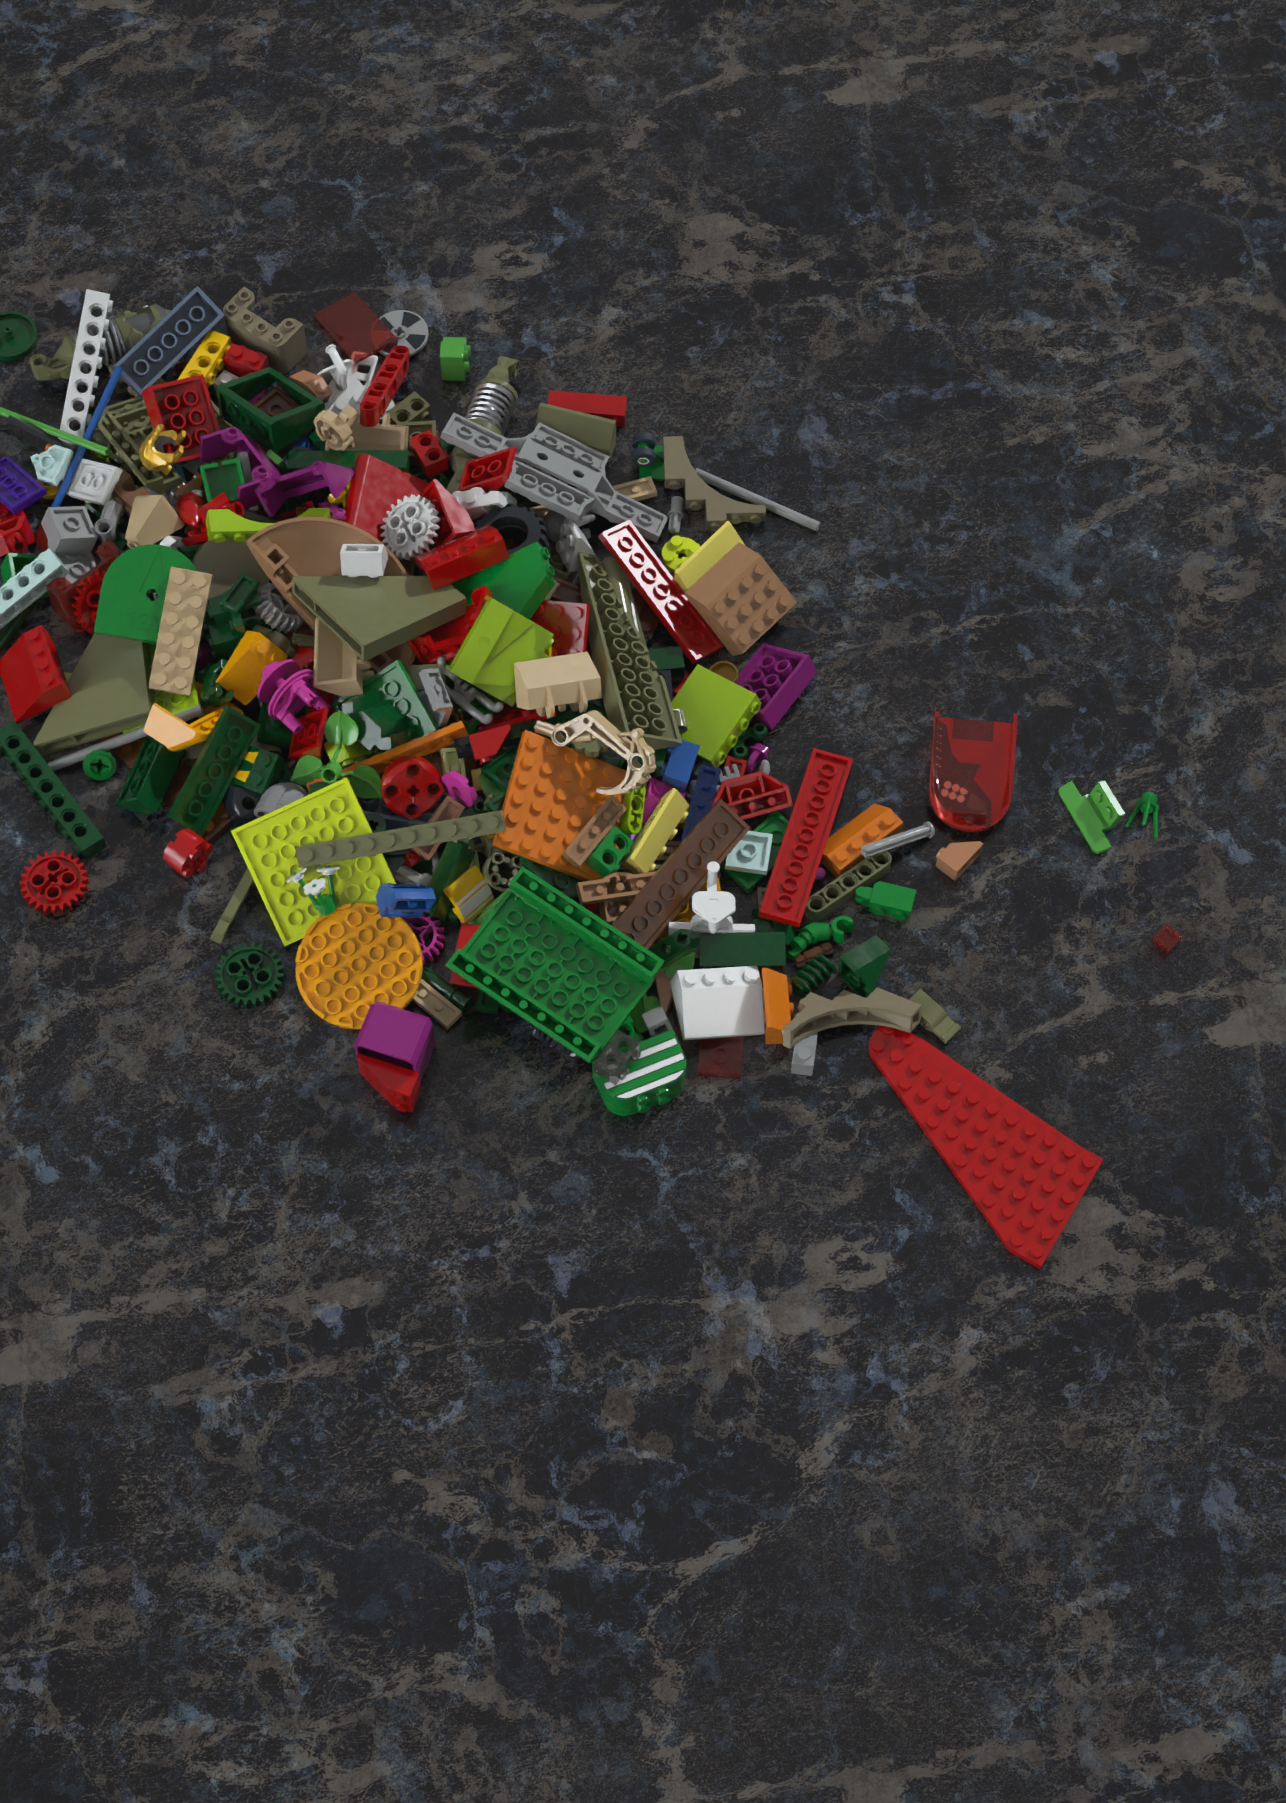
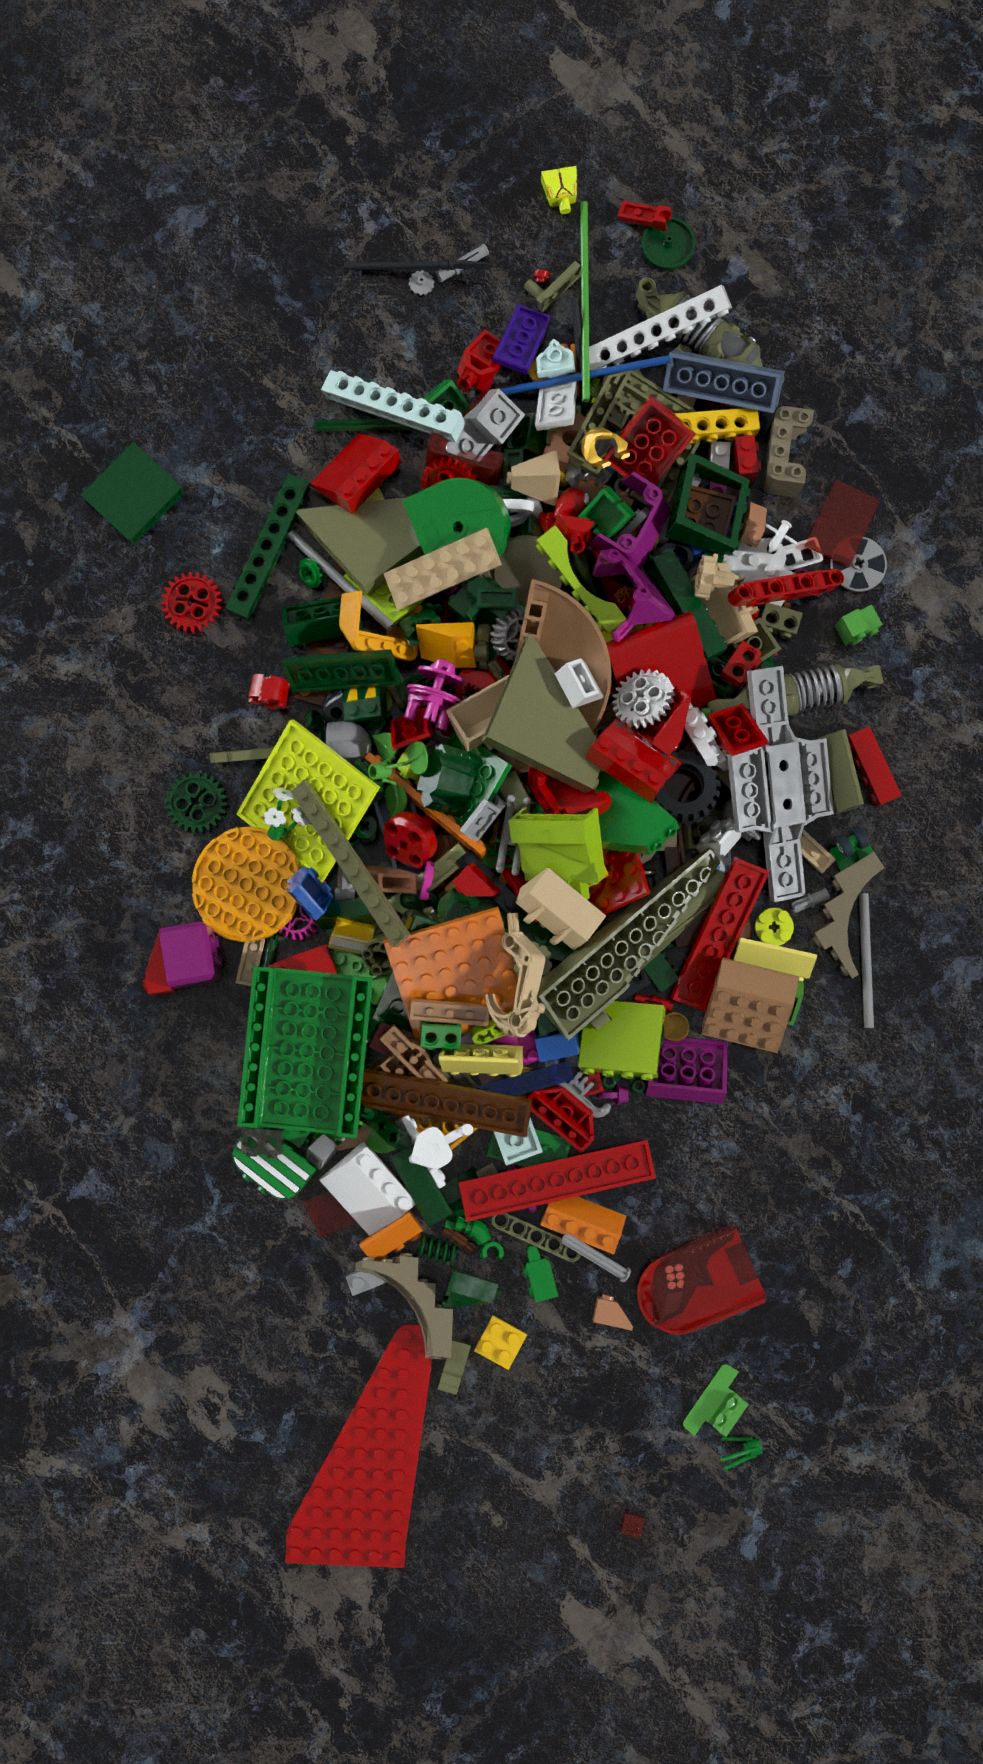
camera: 60 degrees right, 20 degrees up
(108, 520) = (525, 441): light grey piece -> none
(277, 461) = (660, 543): bright green tile -> none
(932, 968) = (500, 1342): none -> yellow plate

